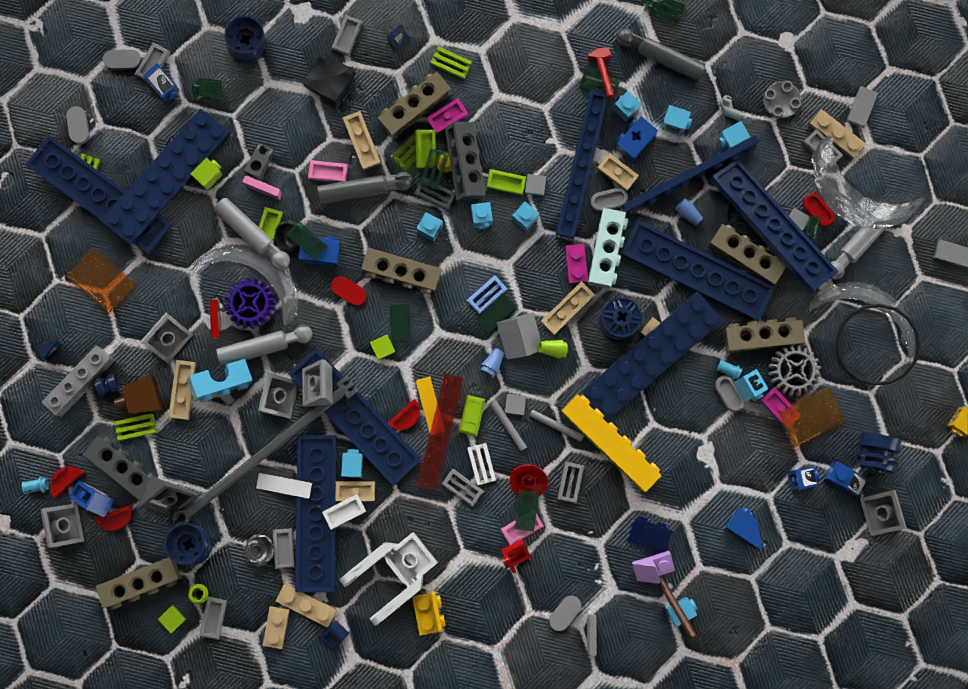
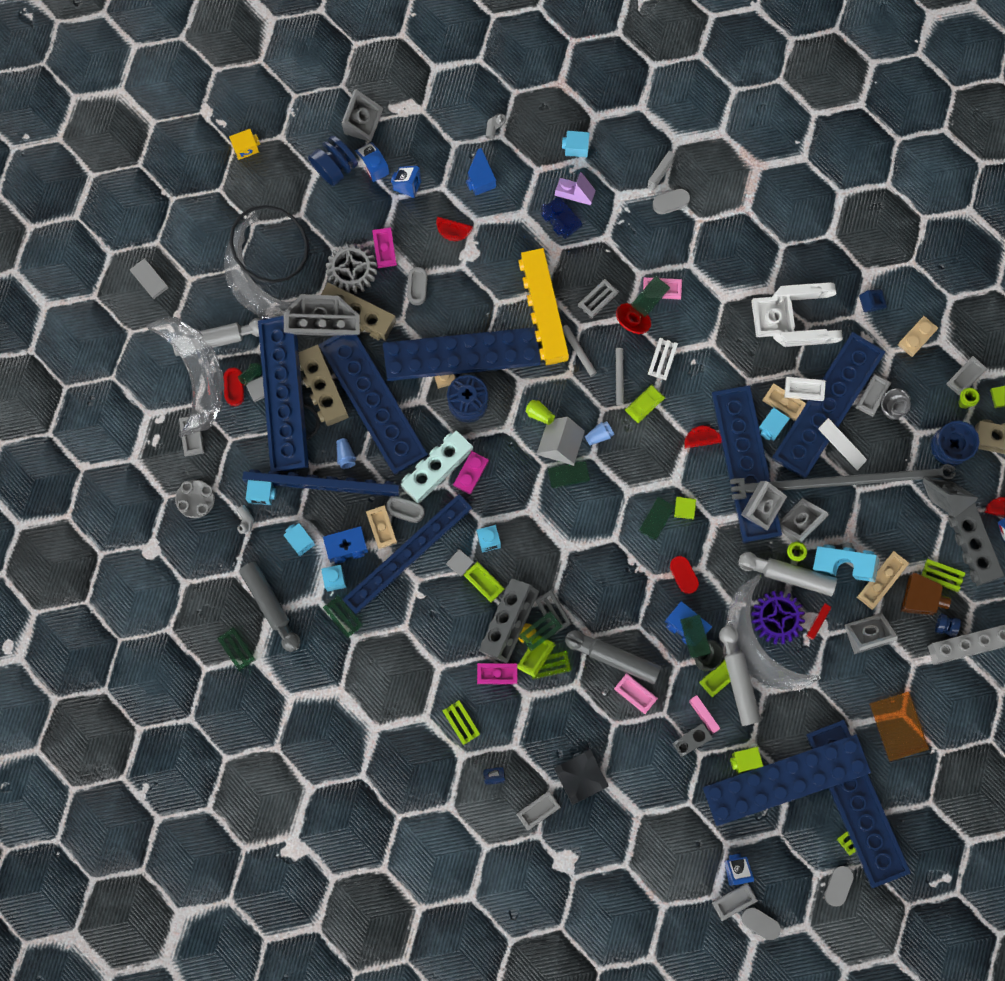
camera: 140 degrees left, 5 degrees down
(48, 348) = (984, 692): dark blue slope -> none
(207, 89) = (699, 840): clear green bracket -> none
(247, 29) = (627, 854): dark blue wheel -> none
(263, 361) = (800, 548): none -> lime cone
(306, 605) = (882, 337): tan plate -> none
(361, 140) = (588, 701): tan plate -> none
(376, 257) = (628, 572): dark tan brick -> none
(396, 126) = (509, 697): dark tan brick -> none
(427, 398) = (675, 434): yellow sticker -> none
(428, 614) = (784, 268): yellow bracket -> none
(429, 226) = (577, 583): medium azure brick -> none
(440, 432) = (680, 405): clear red plate -> none
(449, 478) = (683, 351): light grey tile -> none
(481, 215) = (525, 563): medium azure brick -> none
(484, 287) = (567, 495): light blue tile -> none
(515, 404) = (602, 389): light grey tile -> none
(515, 554) = (683, 269): red bracket -> none
(567, 308) = (504, 439): tan plate -> none
(601, 55) = (324, 641): red piece -> none
(677, 609) = (580, 142): reddish brown bar -> none
(729, 369) = (403, 303): medium azure pin -> none
(734, 462) = (453, 230): none -> red tile
(751, 386) = (396, 278): medium azure brick -> none
(765, 584) = (493, 124): none -> light grey arm
(788, 303) = (321, 316): none -> light grey wedge
(811, 417) = (364, 223): clear orange piece -> none
(842, 137) = (170, 440): tan plate -> none
(862, 106) = (131, 449): light grey tile -> none

